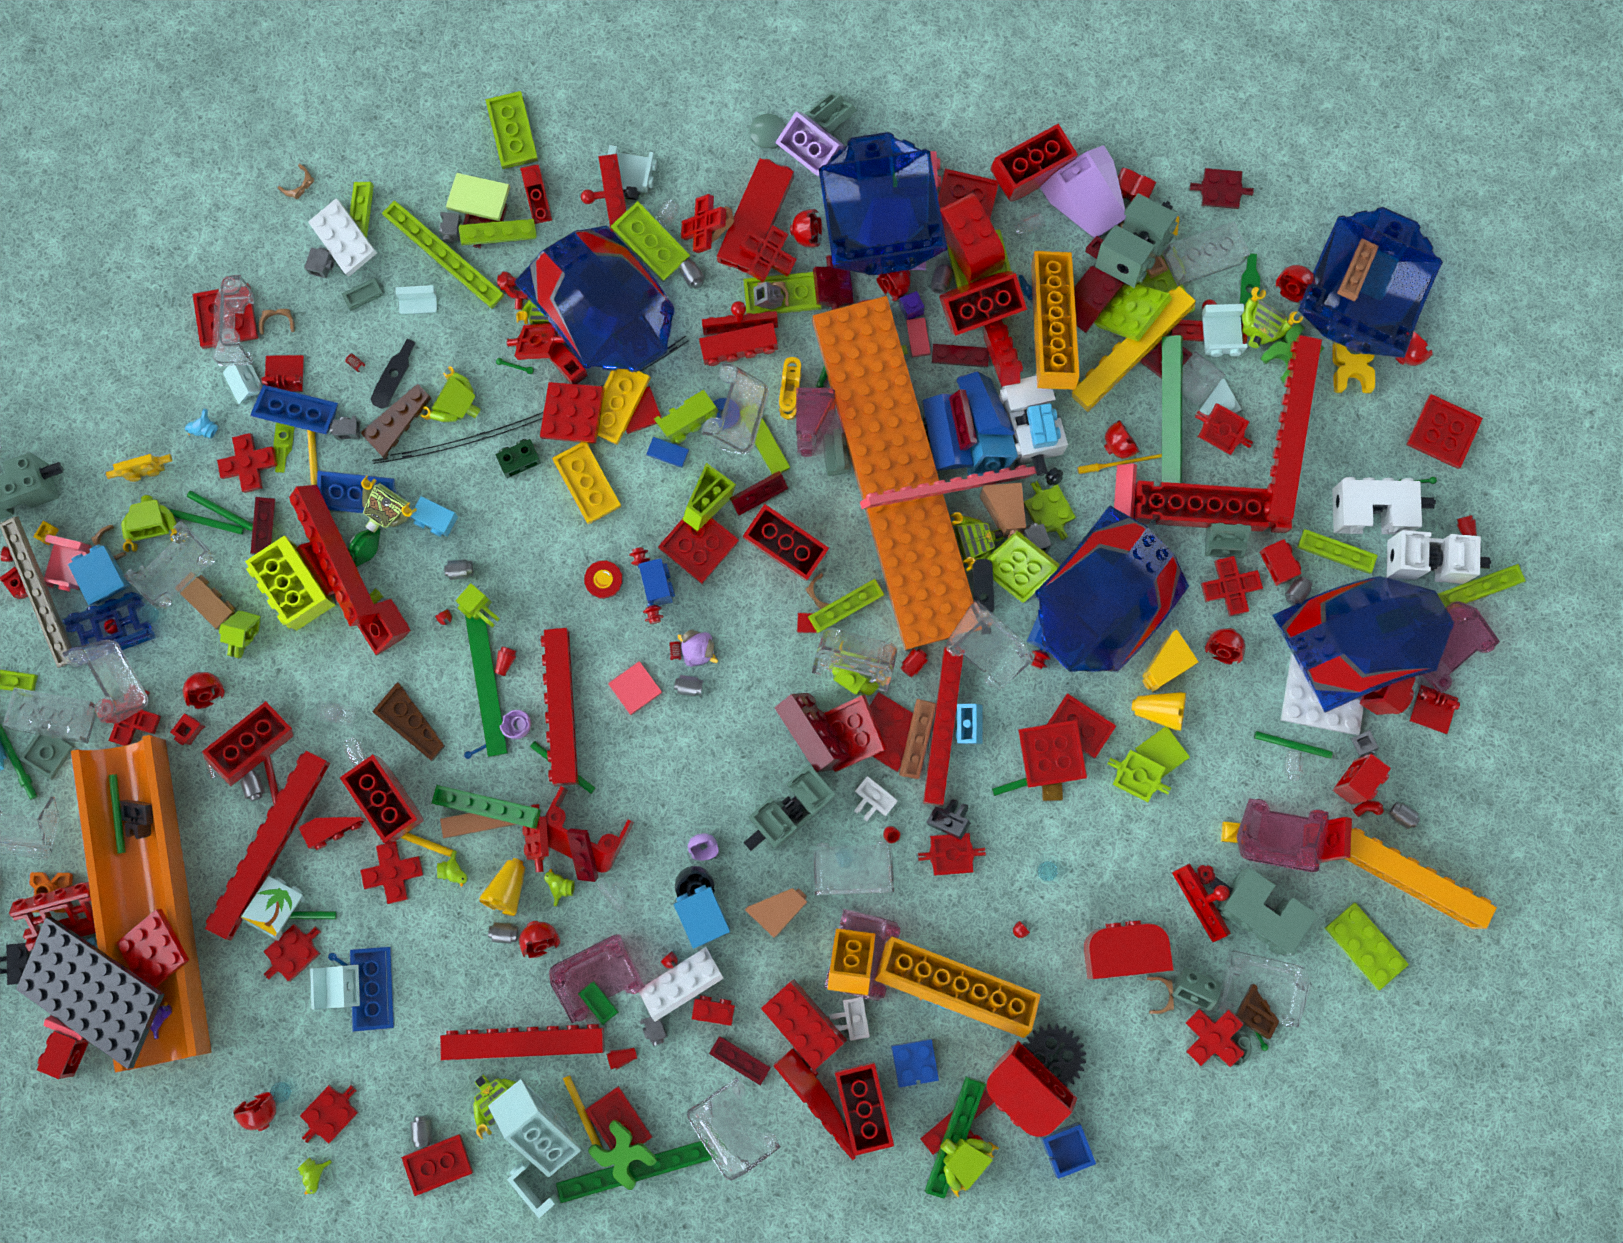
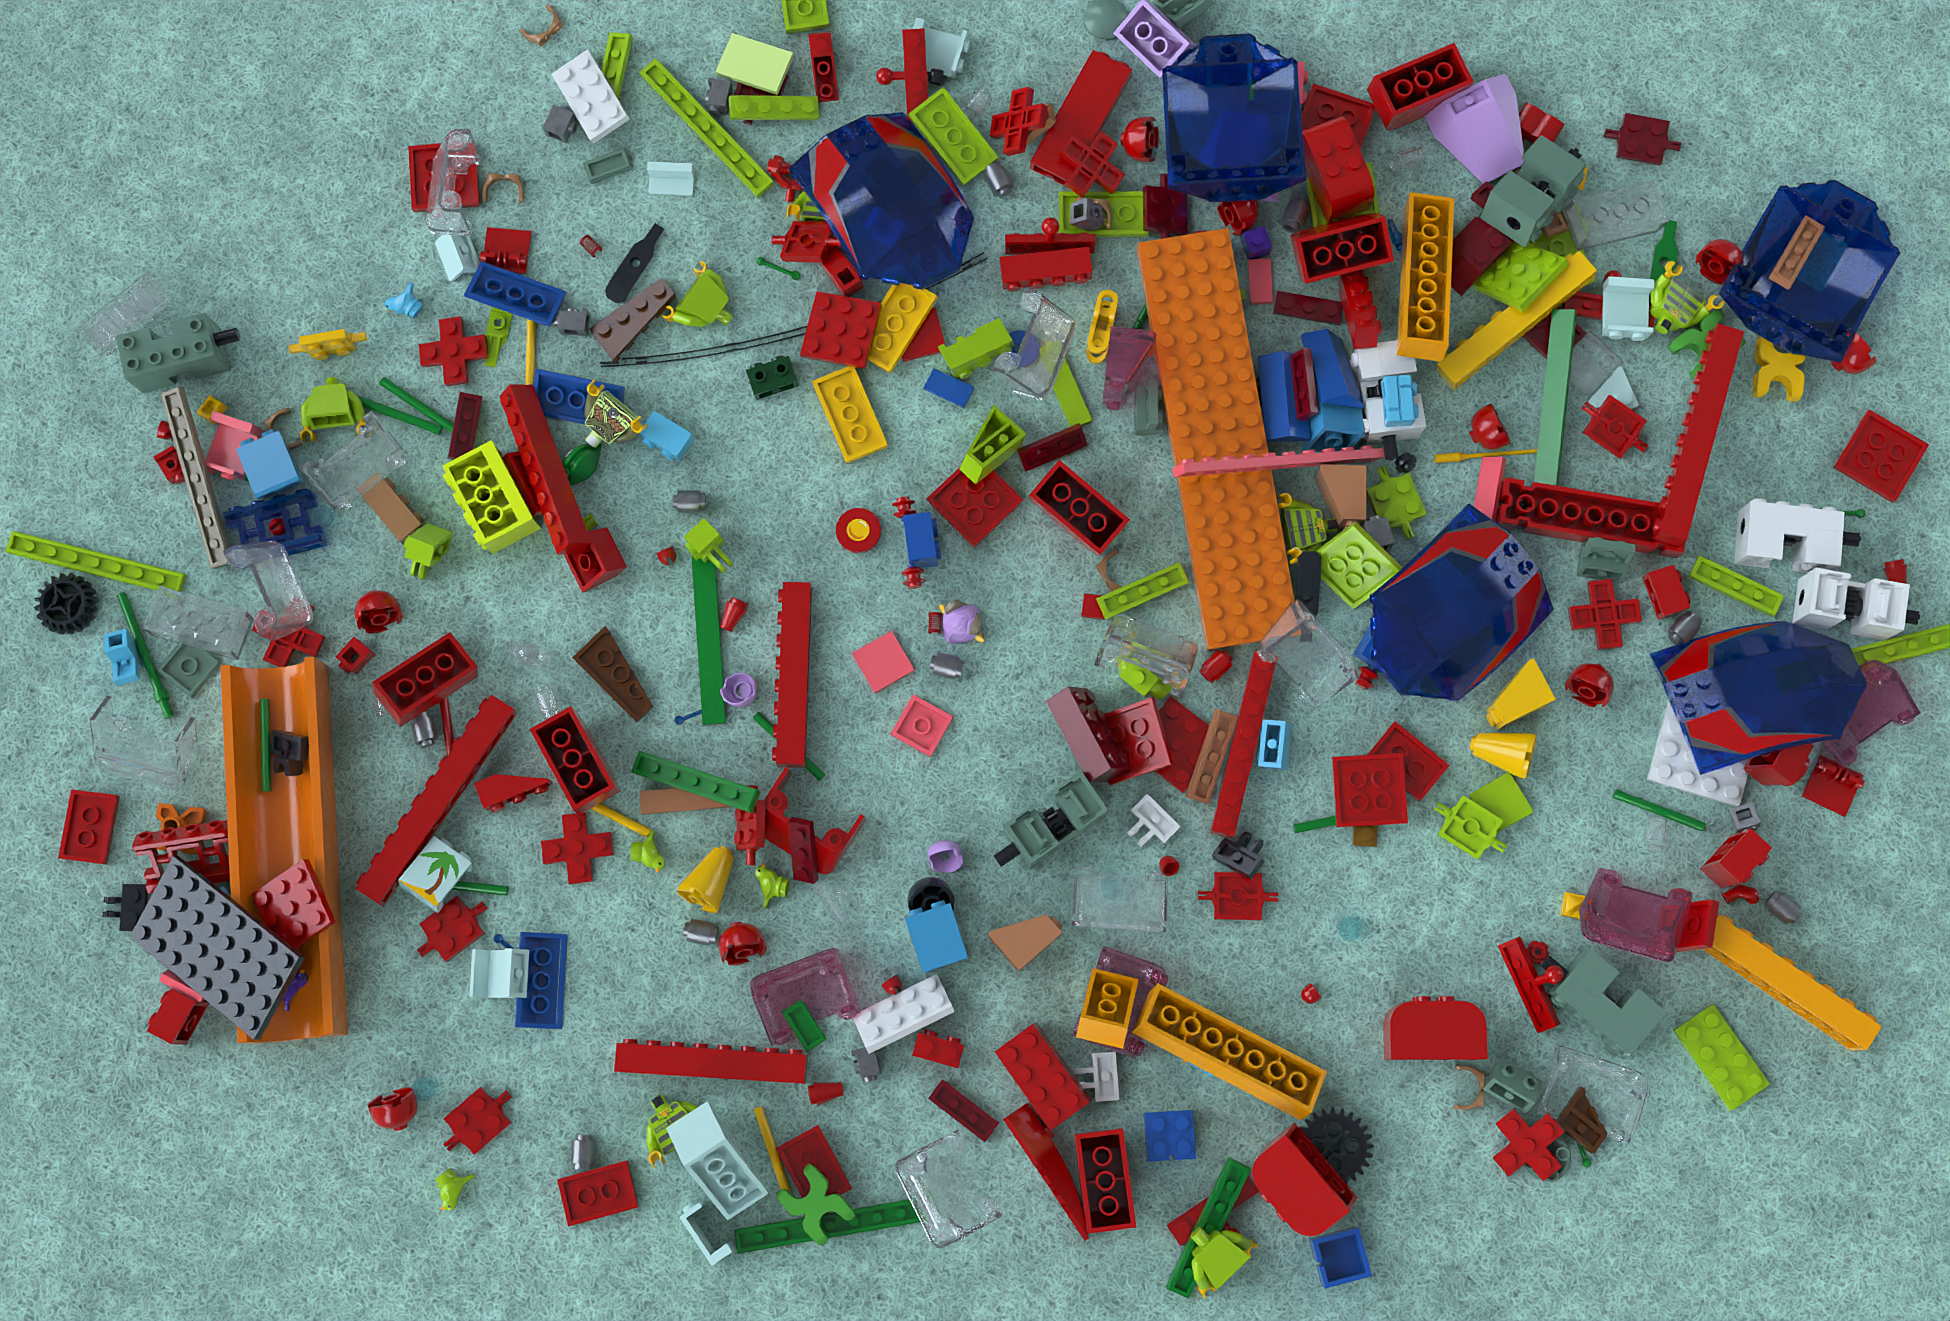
camera: 10 degrees right, 0 degrees up
(672, 738) = (921, 725): none -> coral tile

